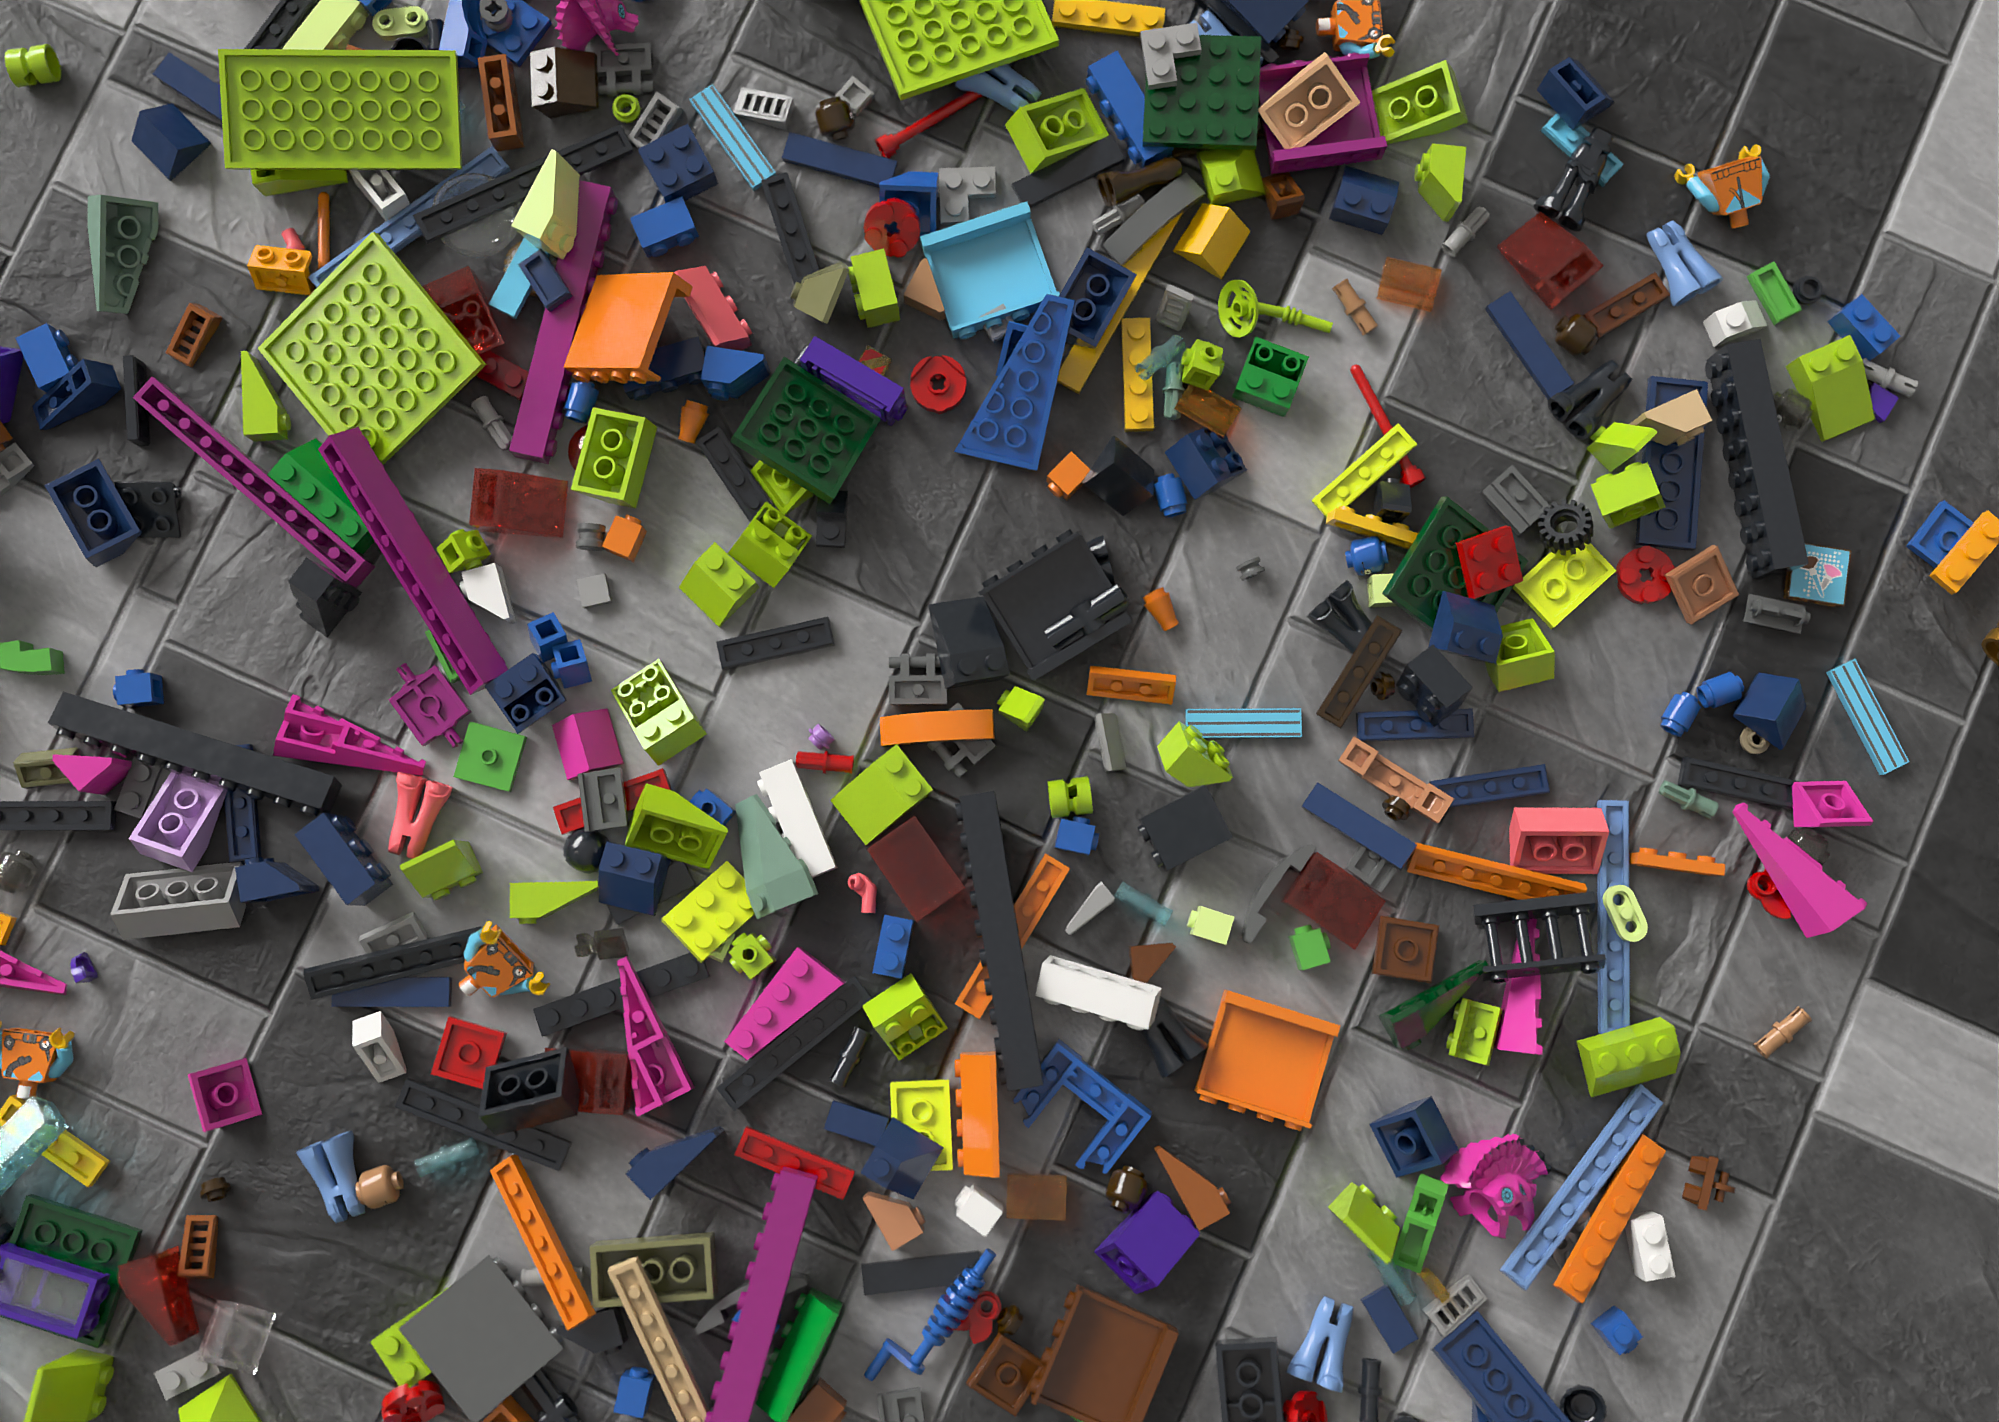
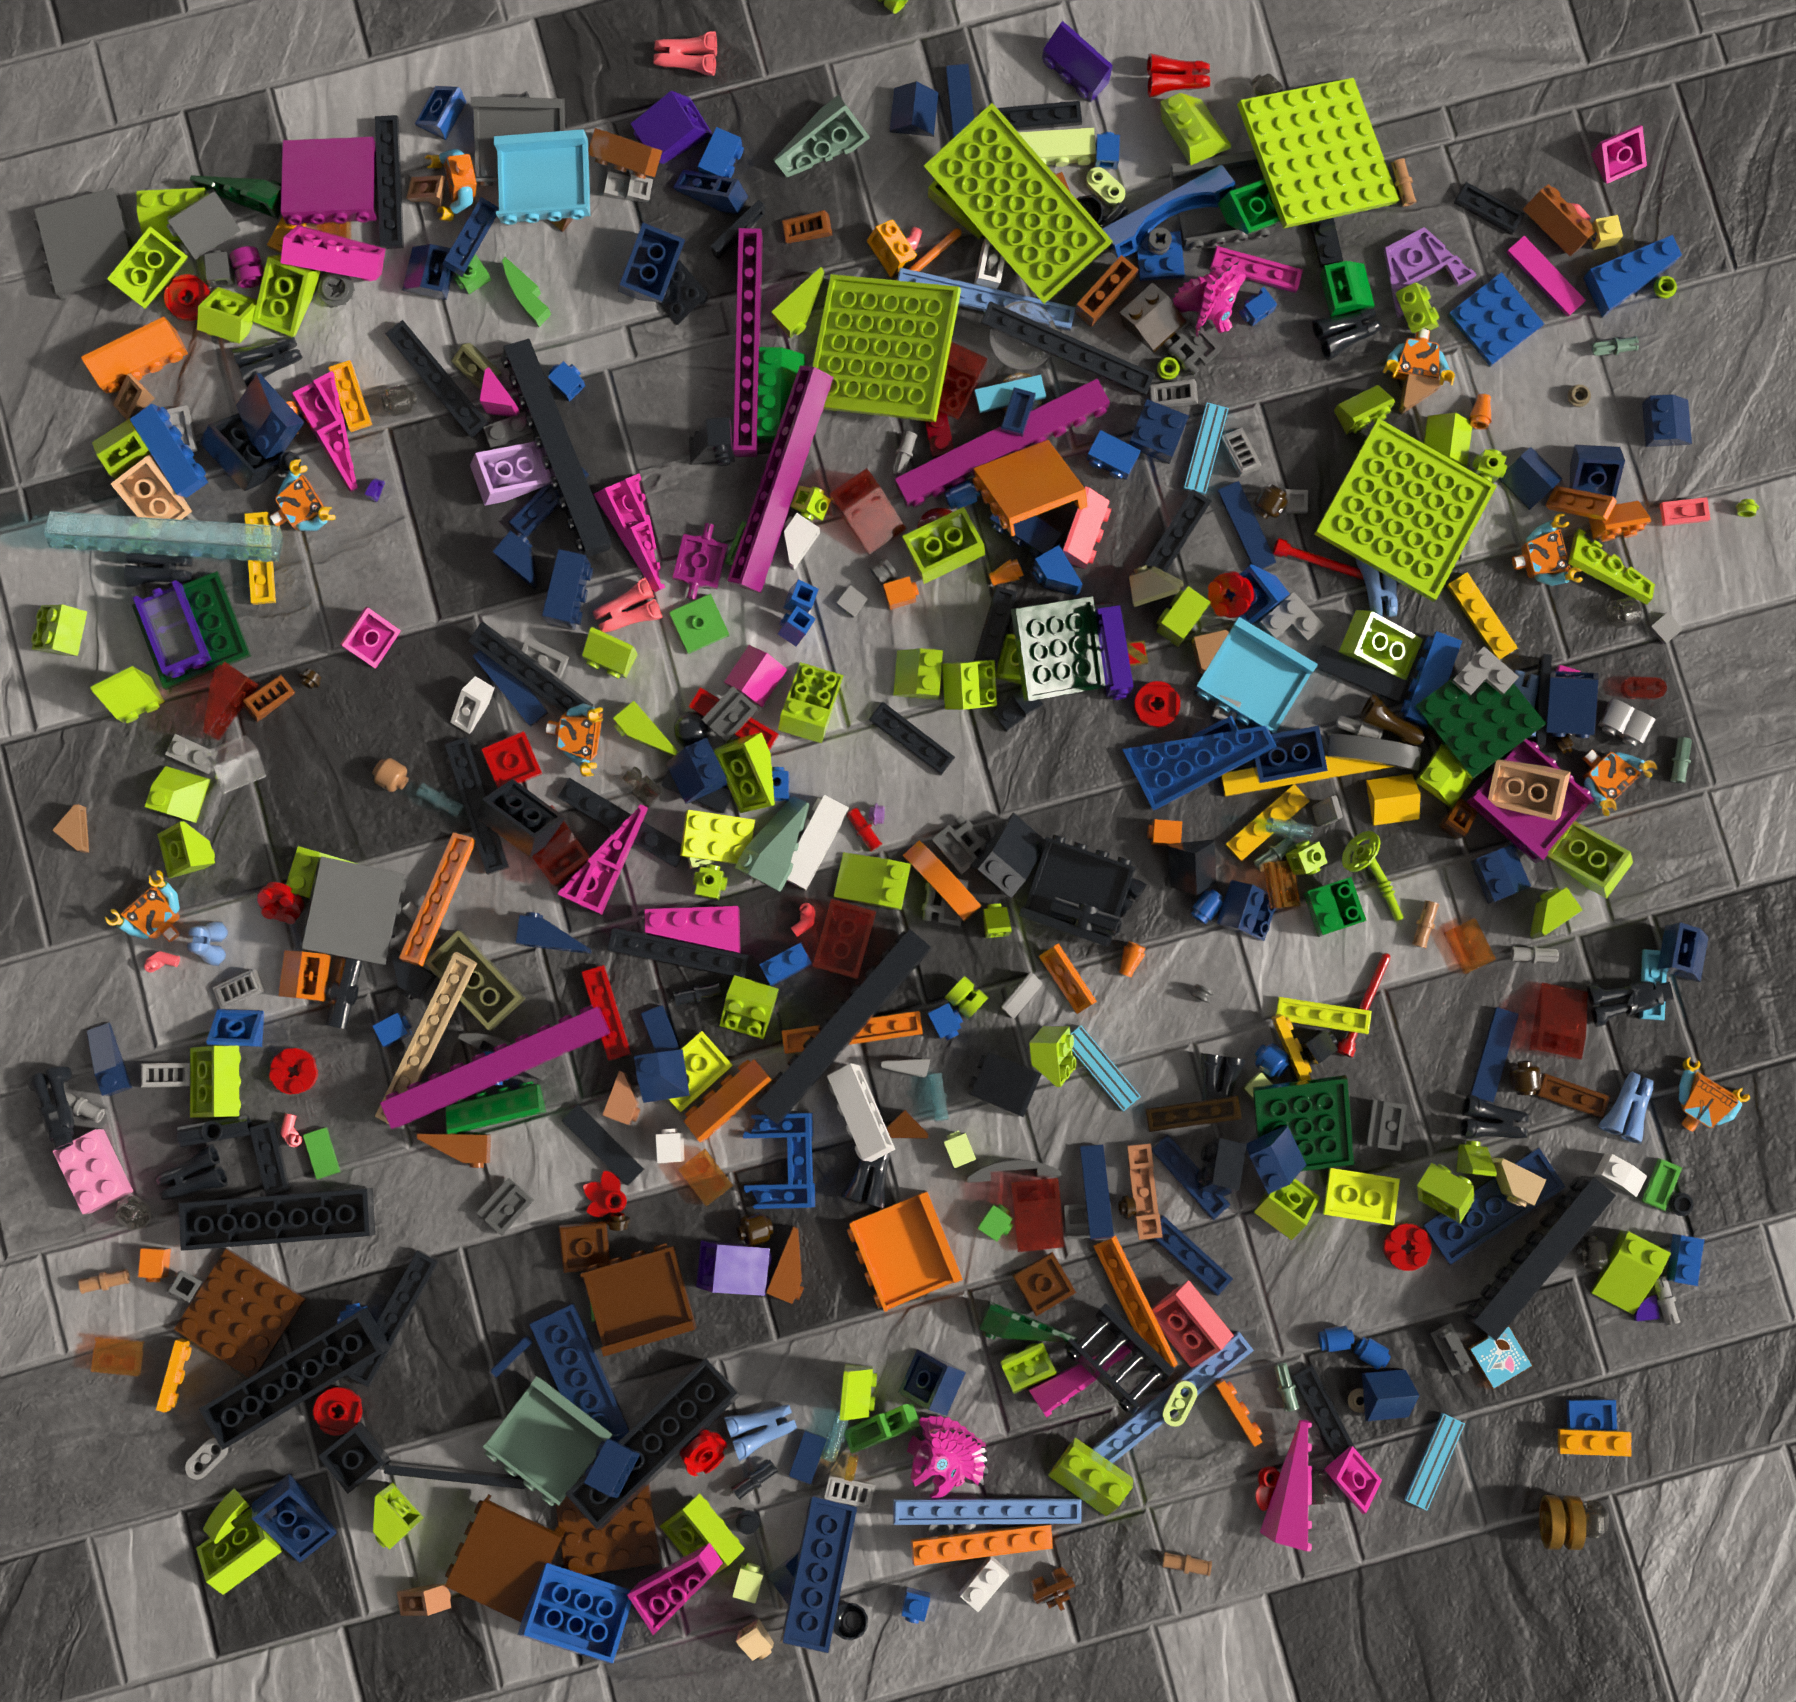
camera: 50 degrees right, 0 degrees up
(178, 901) = (461, 513): light grey slope -> none
(340, 1156) = (389, 737): medium blue piece -> none
(526, 692) = (756, 613): dark blue slope -> none
(551, 208) = (1064, 380): yellowish green slope -> none
(947, 1316) = (598, 1180): blue piece -> none
(1382, 685) = (1197, 1136): dark brown plate -> none
(1489, 562) = (1330, 1139): red plate -> none
(1564, 513) = (1386, 1179): black tyre -> none
(1702, 584) = (1430, 1287): nougat plate -> none

